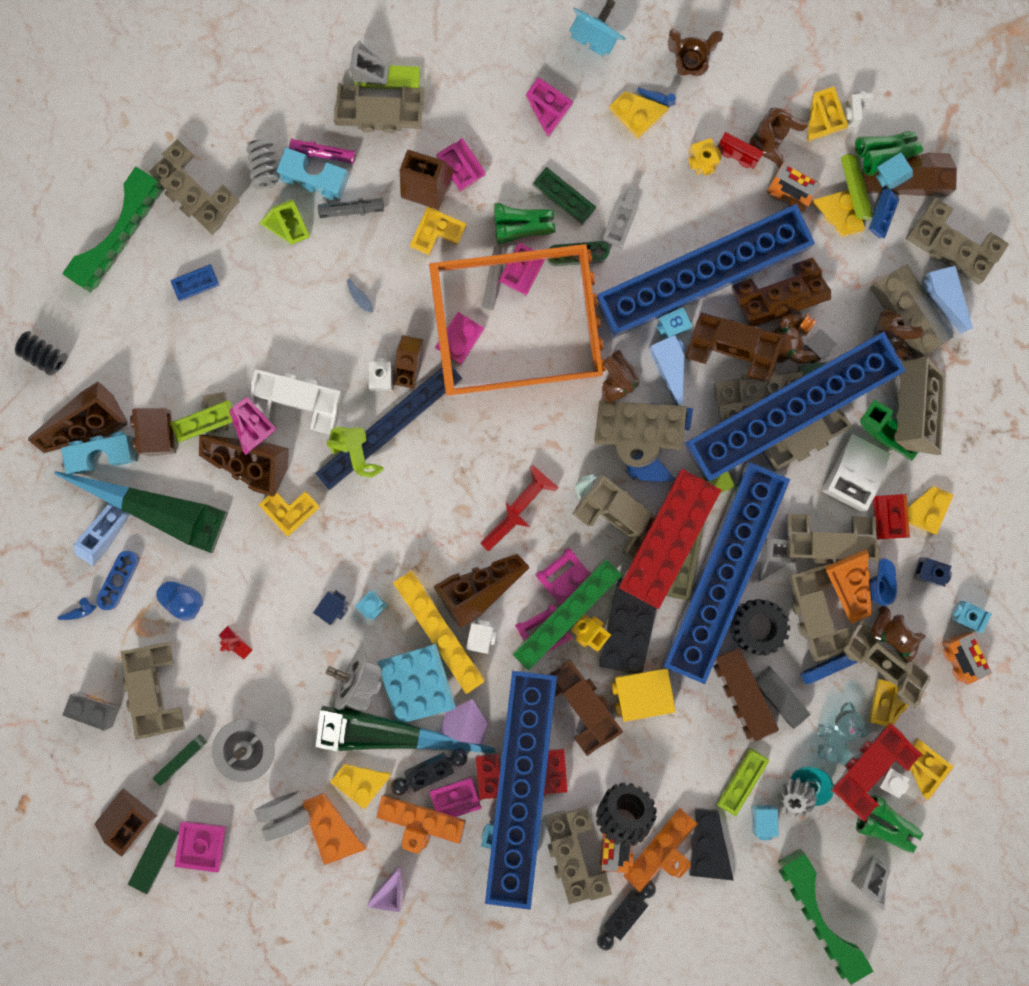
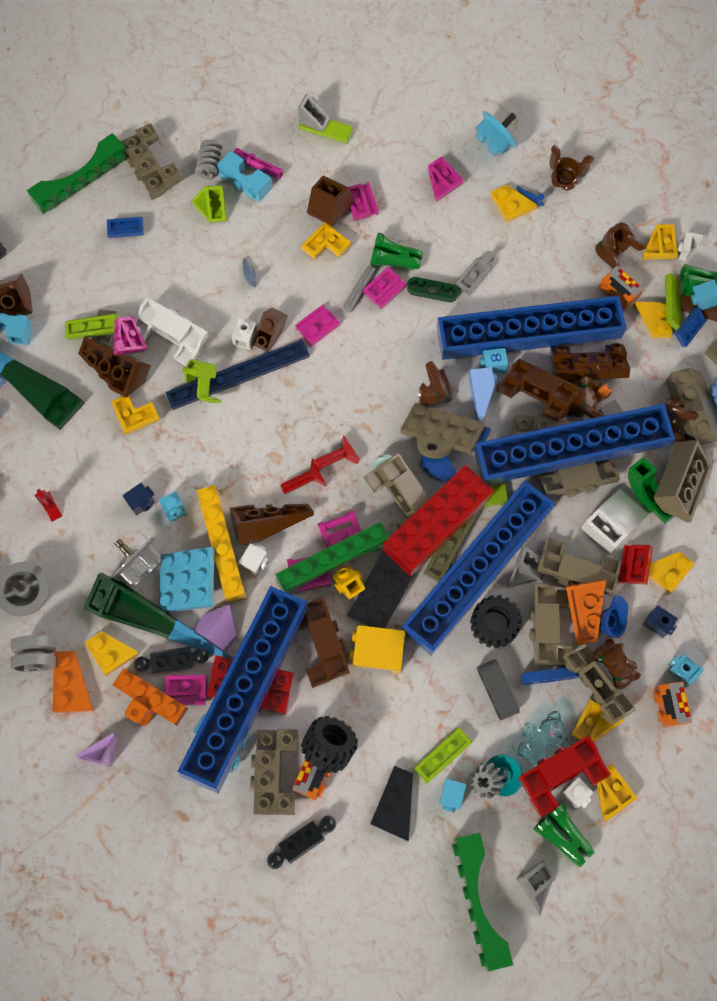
camera: 20 degrees right, 15 degrees down
(152, 431) = (49, 321): reddish brown slope -> none
(179, 600) = (18, 459): blue piece -> none
(350, 208) = (261, 207): dark grey pin -> none
(379, 112) = (311, 147): dark tan bracket -> none
(564, 195) = (435, 246): dark green tile -> none
(590, 301) = (375, 273): orange door -> none
(663, 852) = (352, 794): orange plate -> none
(704, 157) = (555, 245): yellow brick -> none
(739, 150) = (584, 248): red plate -> none
(745, 695) = (466, 678): reddish brown wedge -> none

